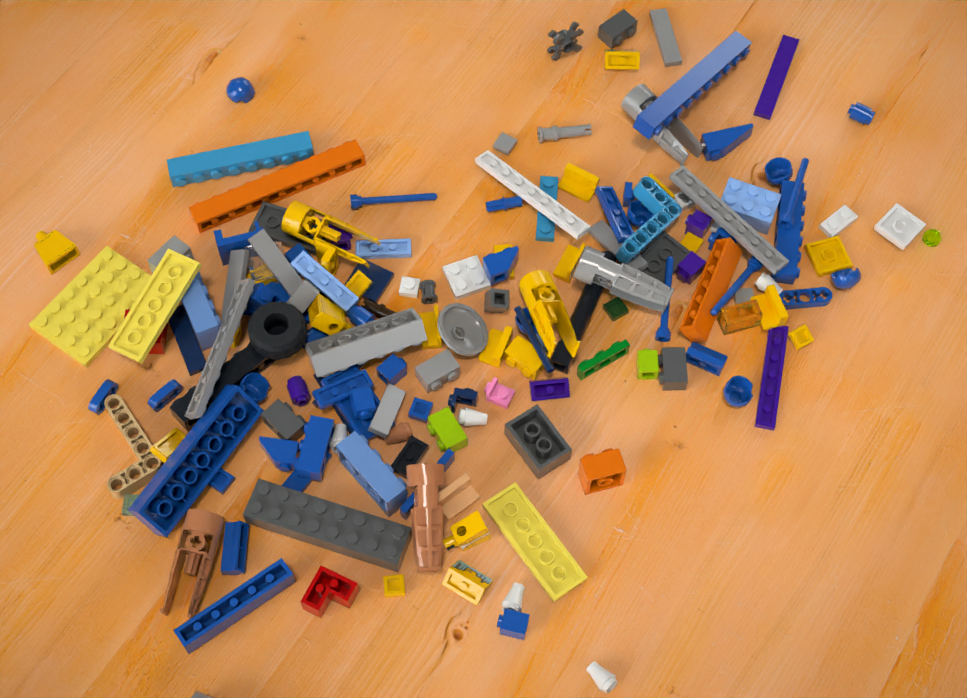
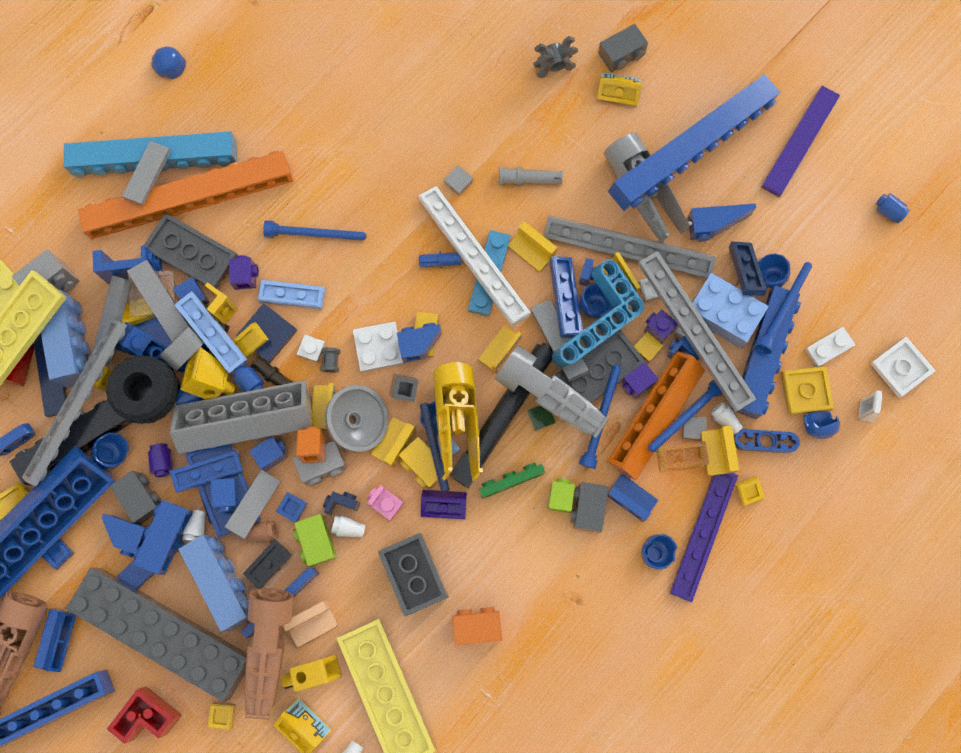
camera: 15 degrees right, 15 degrees up
(243, 171) = (146, 173): none -> light grey tile
(301, 217) = (197, 251): yellow piece -> none
(430, 352) = (311, 445): none -> orange brick
(661, 170) = (628, 245): none -> light grey plate
(665, 37) = (678, 67): light grey tile -> none
(757, 171) = (747, 269): none -> dark blue plate
(881, 257) = (870, 407): none -> white slope
(931, 237) = (937, 388): clear neon green plate -> none

